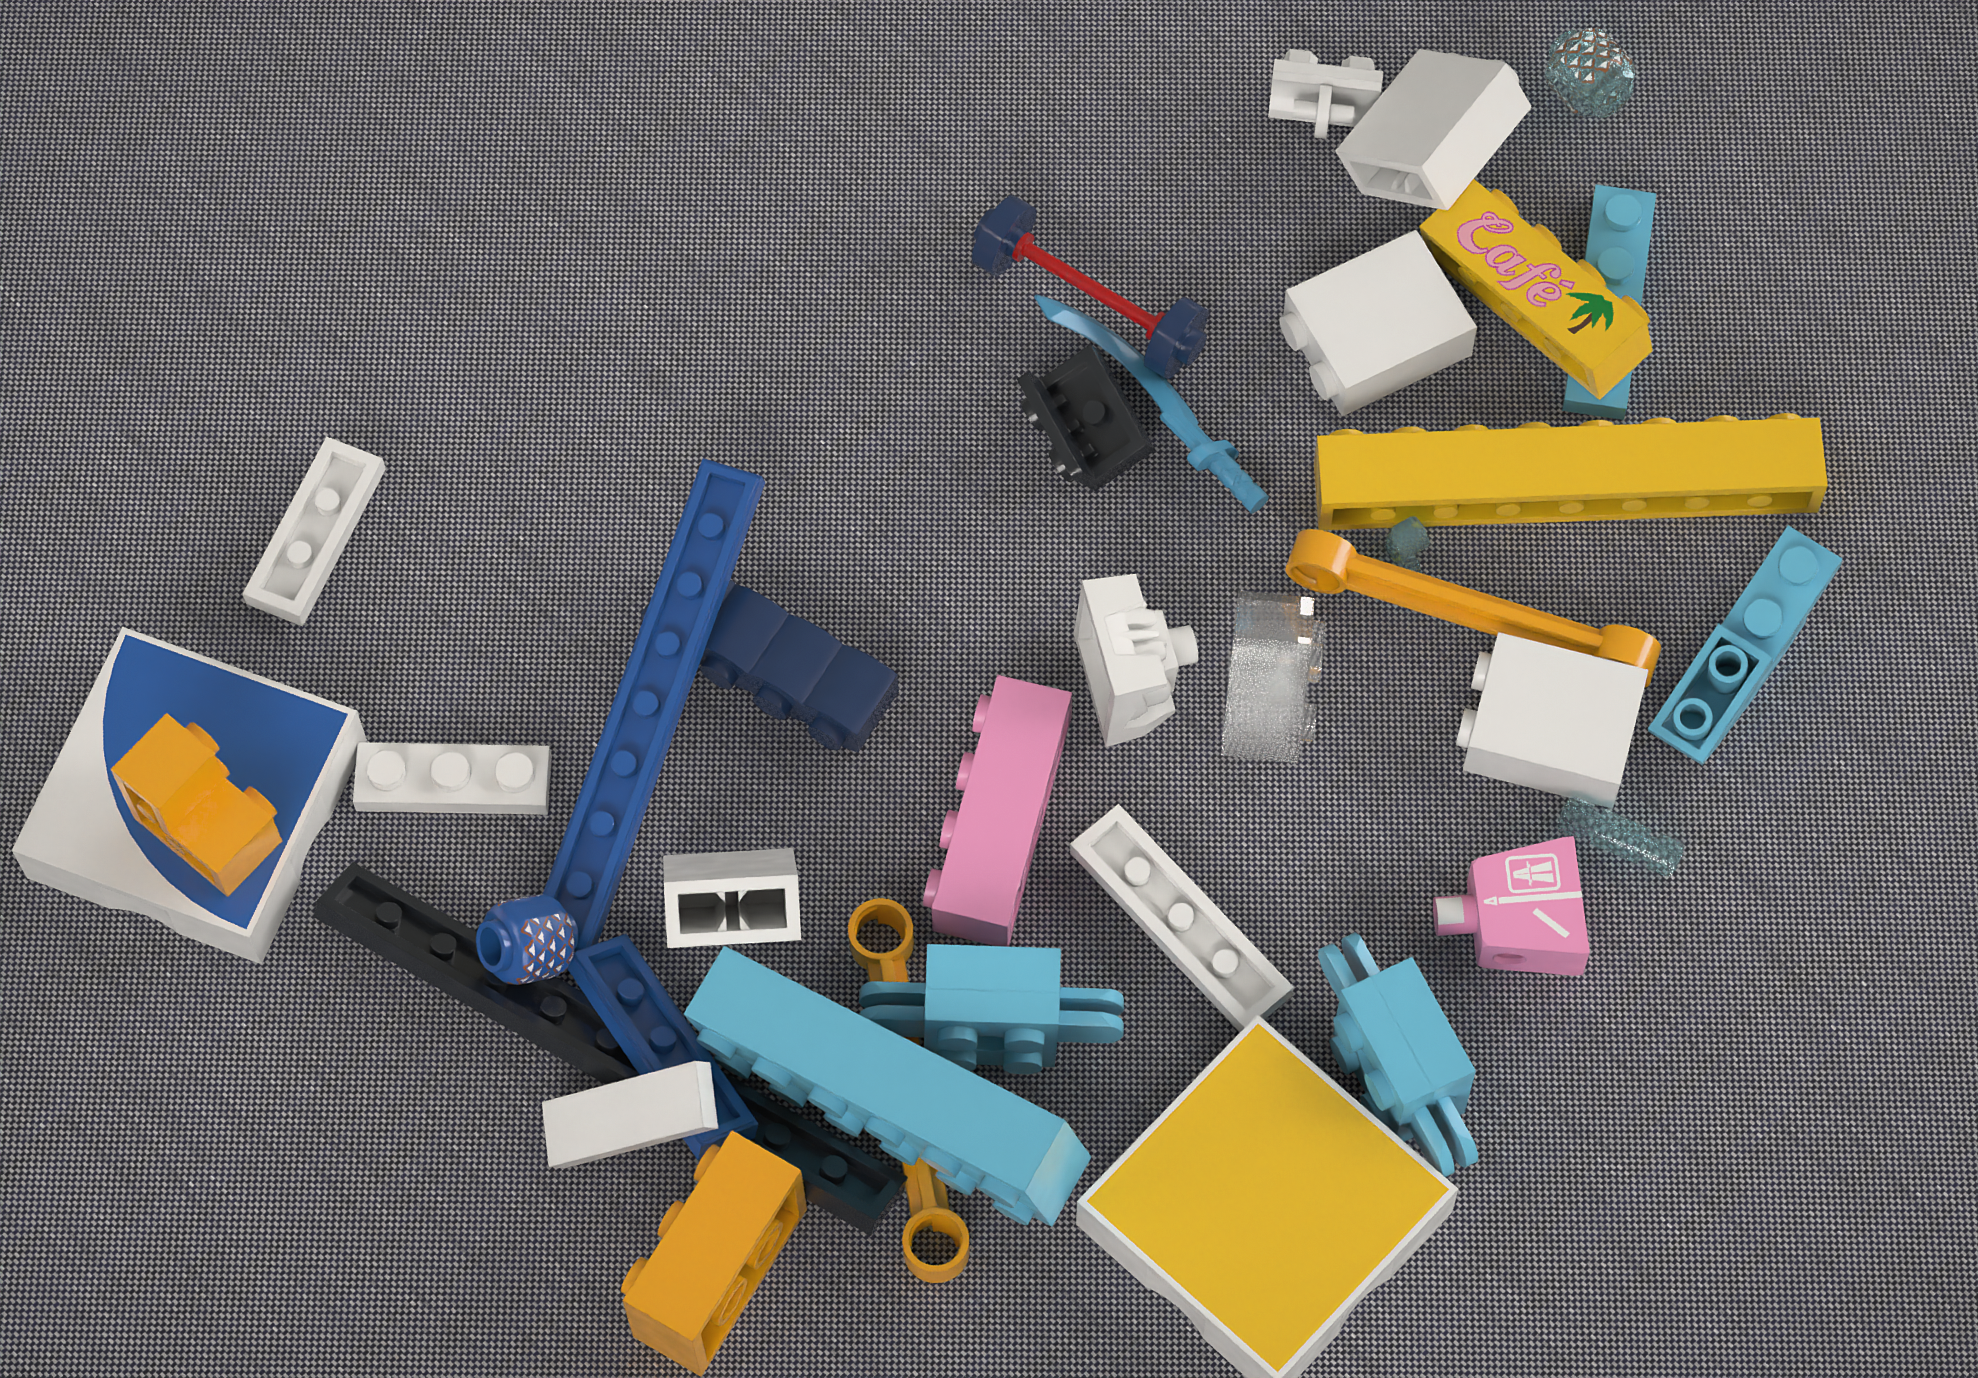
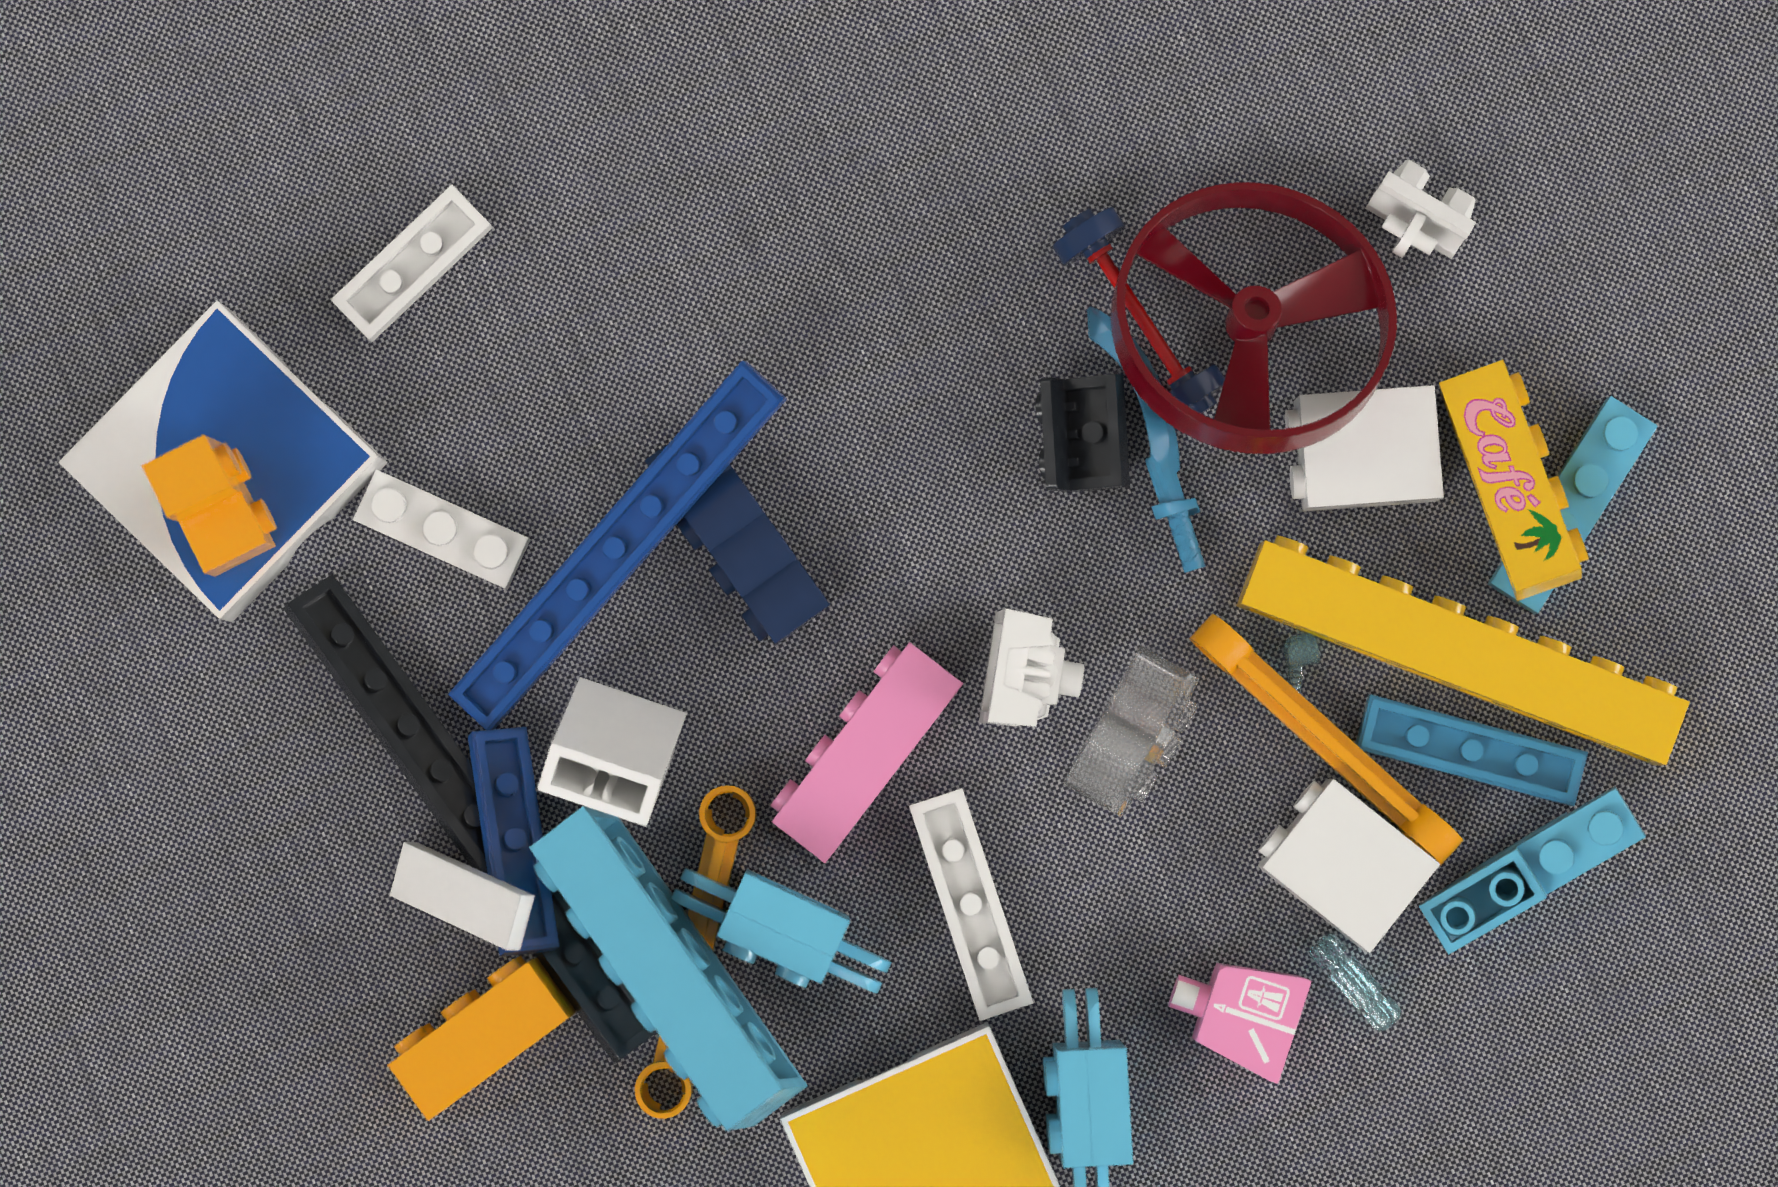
camera: 25 degrees right, 20 degrees up
(527, 939) = (439, 712): blue head -> none
(1237, 311) = (1255, 312): none -> dark red piece
(1434, 128) = (1495, 295): white brick -> none
(1590, 72) = (1654, 292): clear light blue head -> none
(1627, 567) = (1471, 750): none -> dark azure tile

